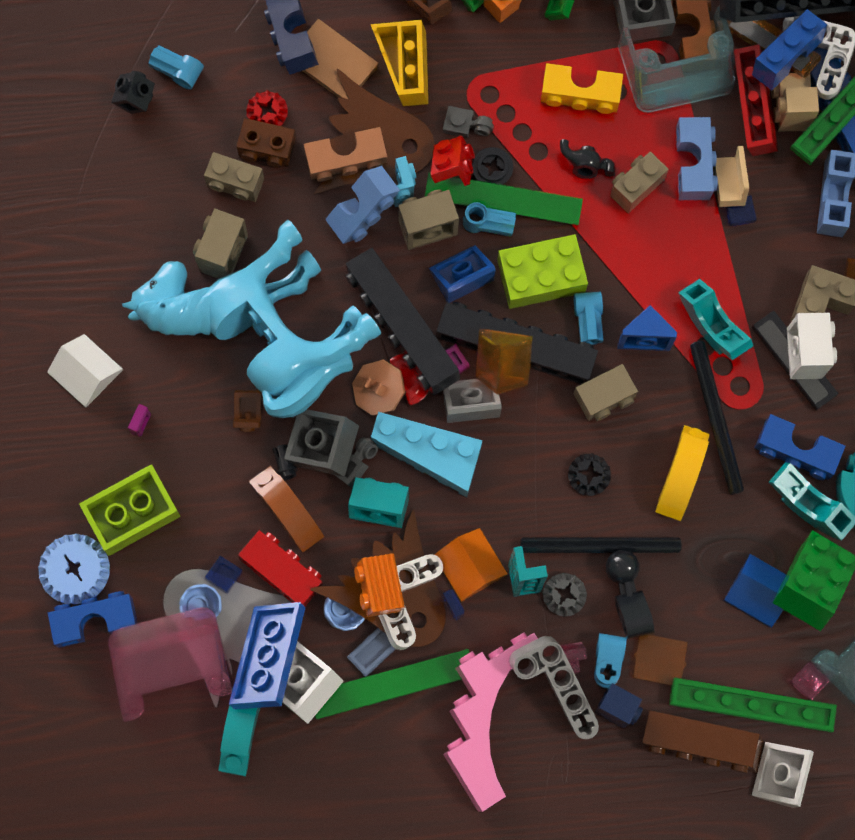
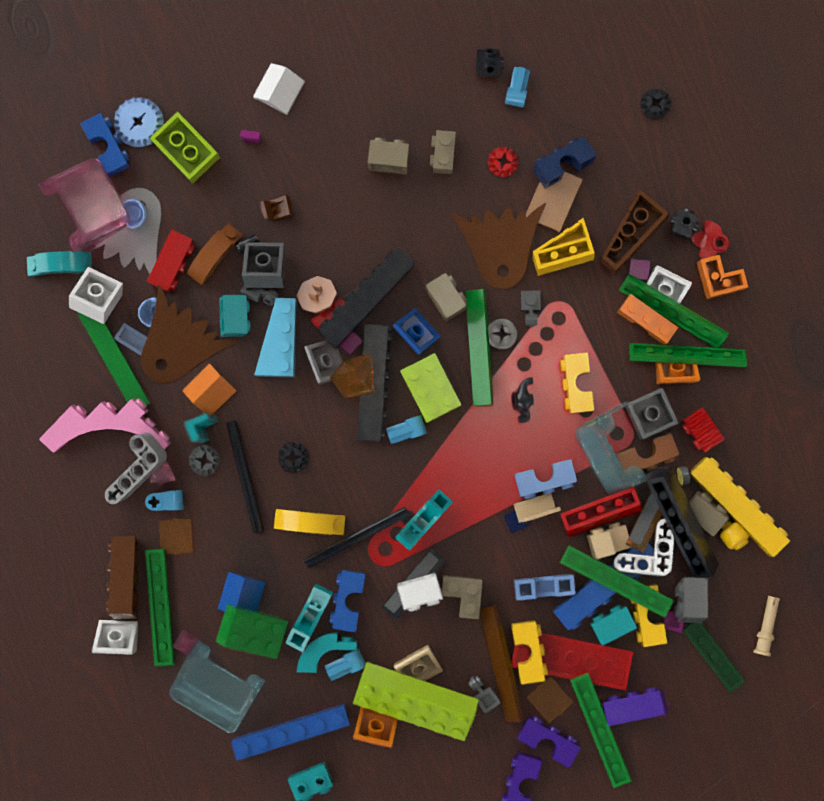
camera: 85 degrees right, 10 degrees up
(223, 574) = (159, 224): clear blue tile -> none
(266, 143) = (476, 168): reddish brown brick -> none
(267, 656) = (105, 267): blue plate -> none
(289, 369) = (309, 231): medium azure animal -> none
(324, 162) = (472, 211): nougat arch -> none
(375, 194) = (440, 249): medium blue arch -> none
(379, 585) = (170, 330): orange brick -> none
(405, 177) = (472, 273): medium azure bracket -> none
(406, 626) = (177, 342): white beam -> none
(452, 159) = (495, 303): red bracket -> none
(453, 604) = (177, 385): clear blue tile -> none
(492, 220) = (460, 344): dark azure piece -> none
(606, 393) = (351, 454): dark tan brick -> none
(619, 706) = (131, 515): dark blue brick -> none
(631, 605) = (229, 495): black beam -> none
(639, 181) = (515, 441): dark tan brick -> none
(648, 332) = (403, 472): blue slope -> none
(780, 55) = (637, 524): blue arch -> none

